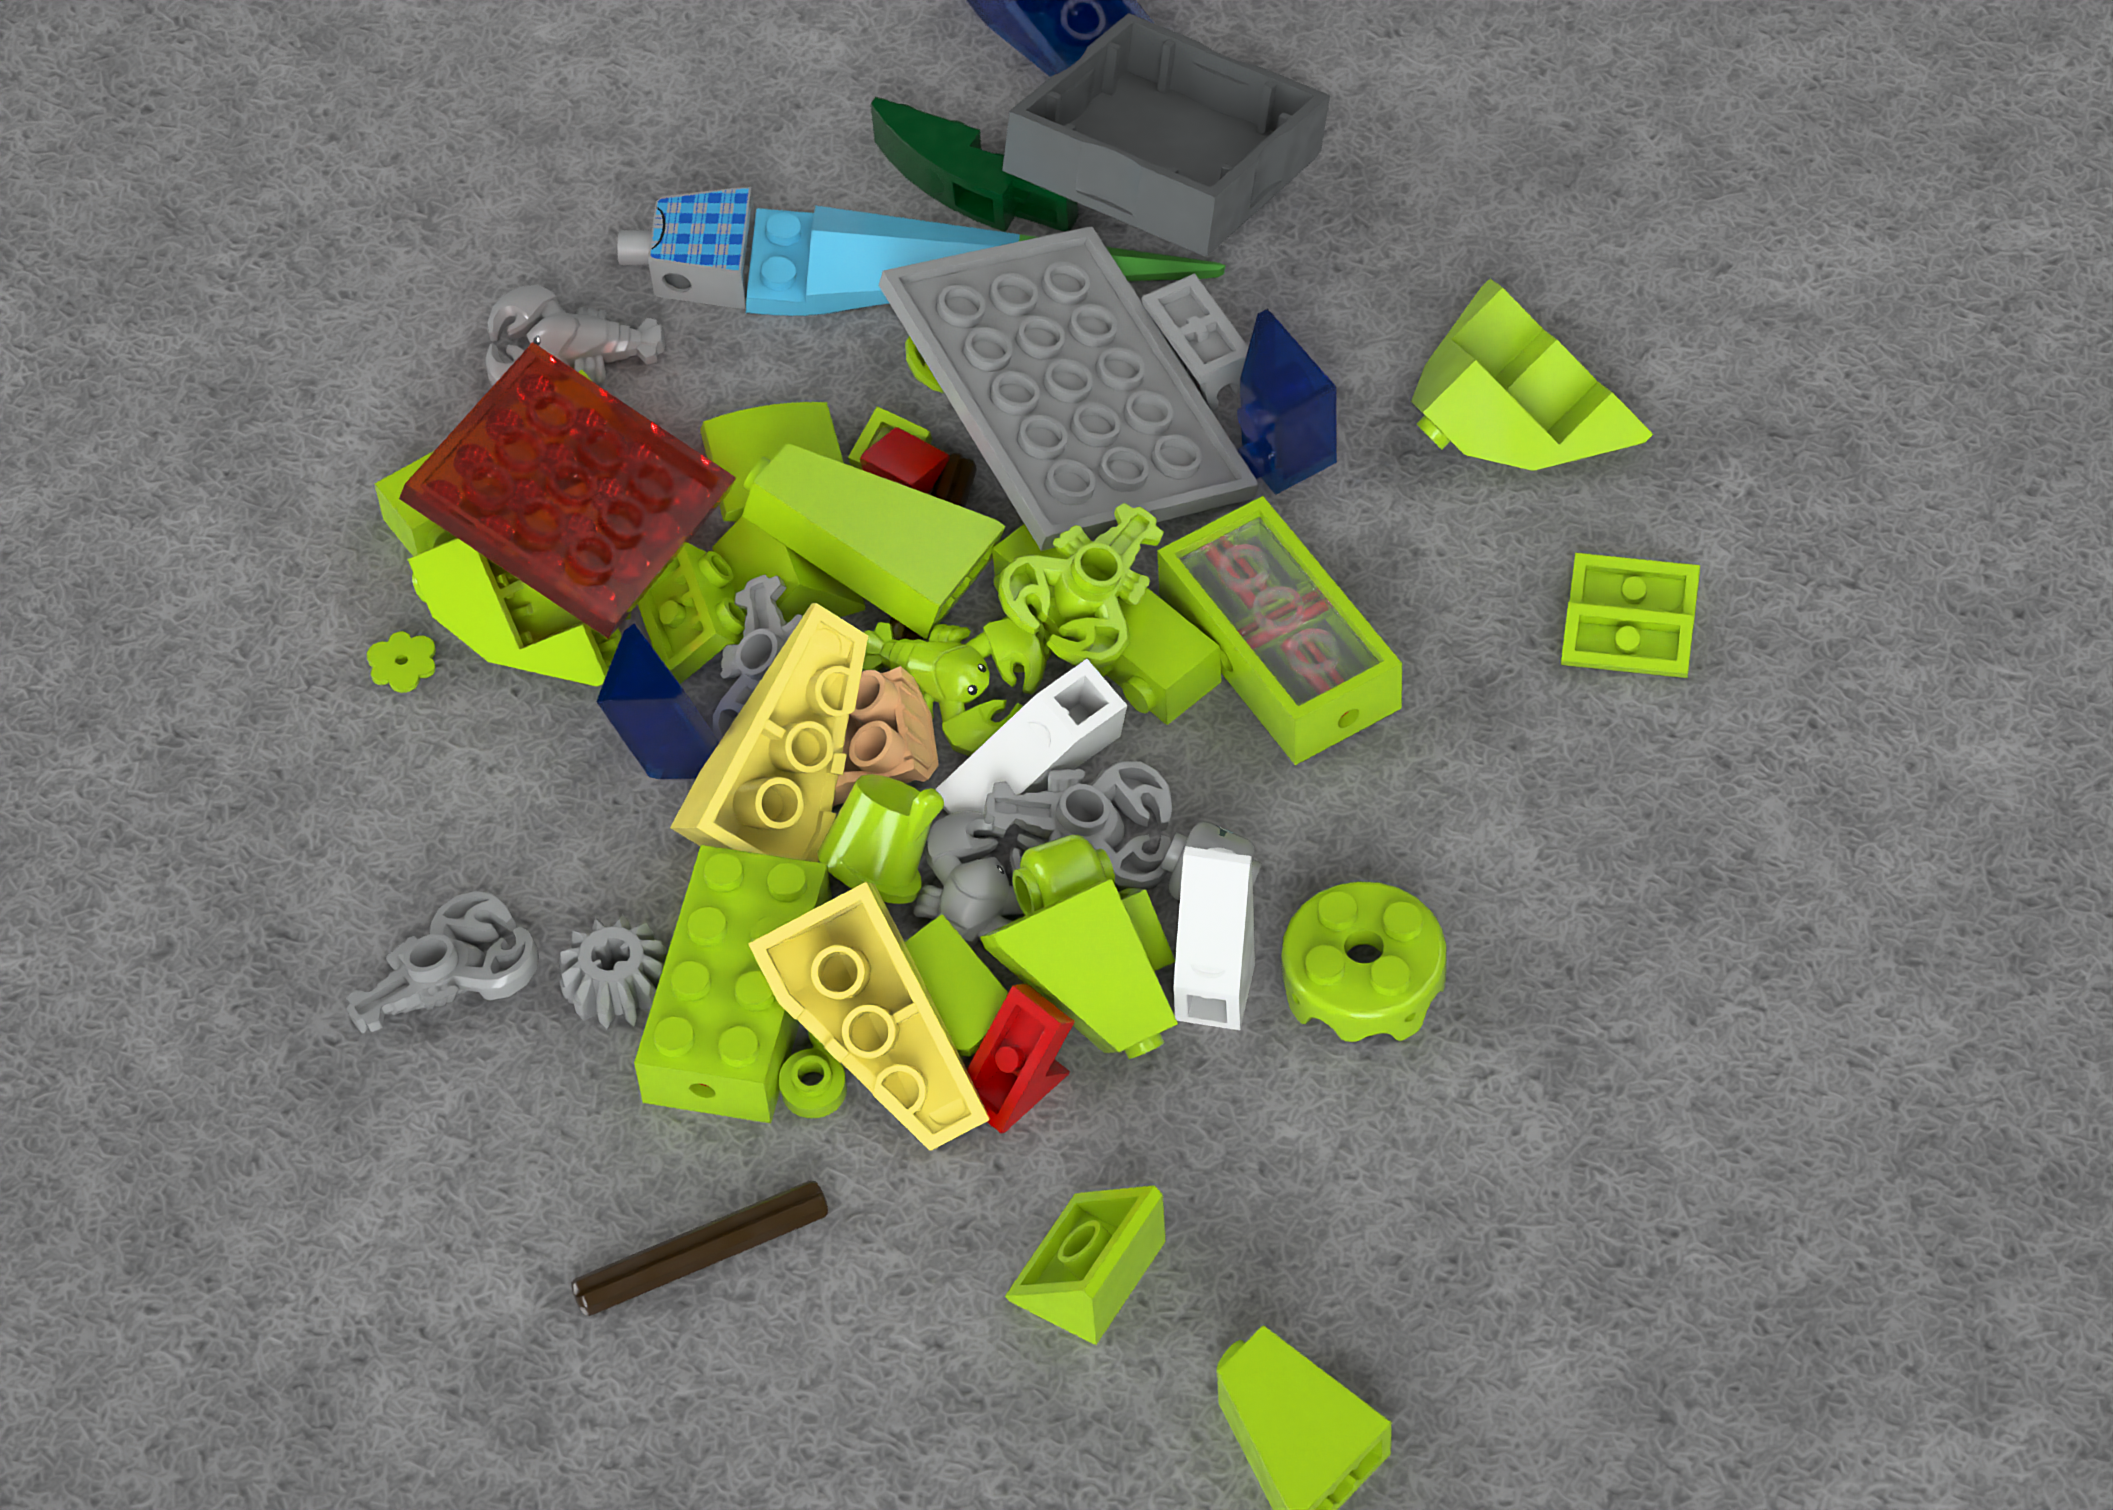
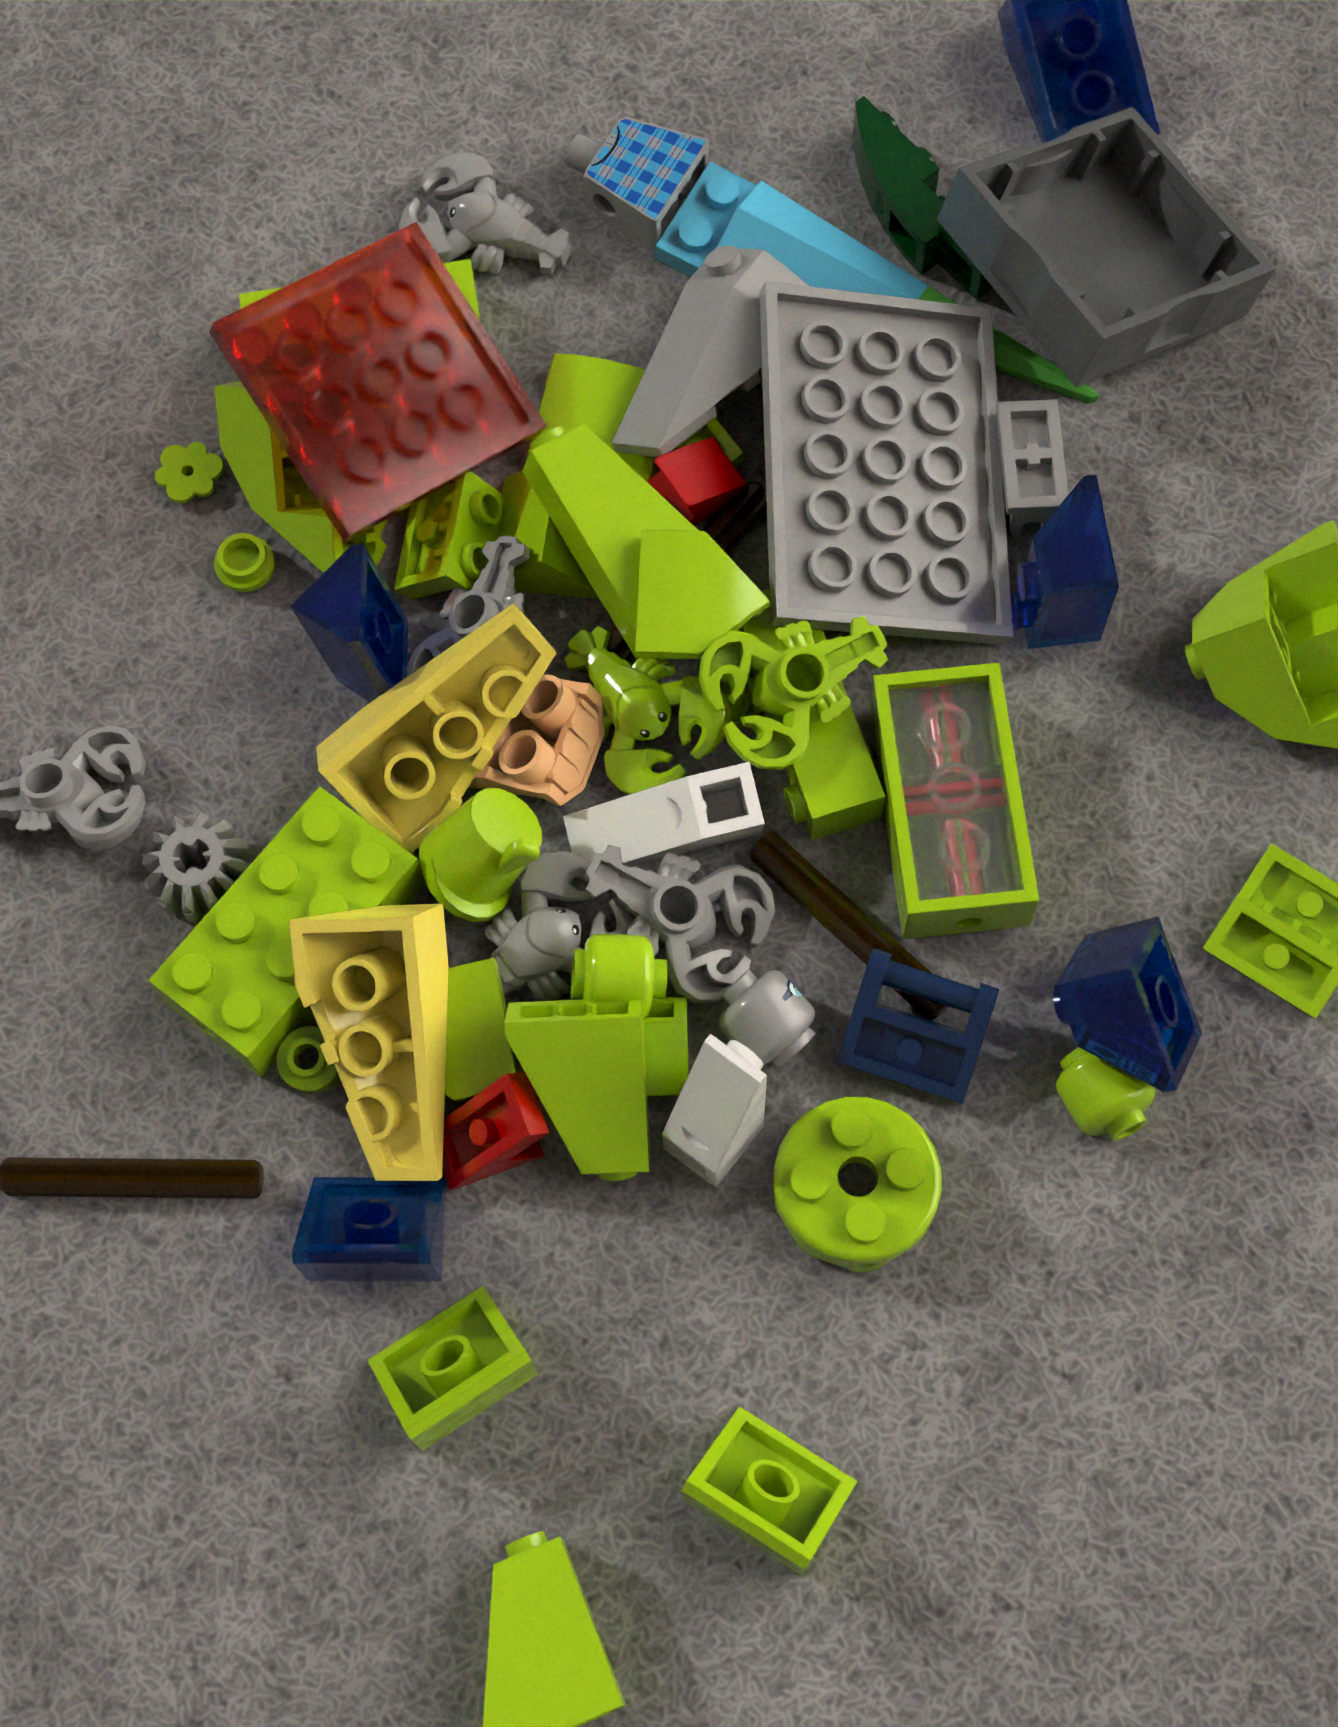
camera: 25 degrees right, 15 degrees up
(504, 712) = (244, 562): none -> lime plate
(850, 355) = (703, 352): none -> light grey wedge
(956, 1191) = (371, 1230): none -> clear blue slope
(958, 546) = (689, 594): none -> lime slope
(1244, 772) = (834, 910): none -> dark brown axle
(1351, 838) = (910, 1046): none -> dark blue plate
(1421, 1236) = (768, 1490): none -> lime slope
(1521, 713) = (1130, 1003): none -> clear blue slope
(1538, 800) = (1102, 1096): none -> lime head

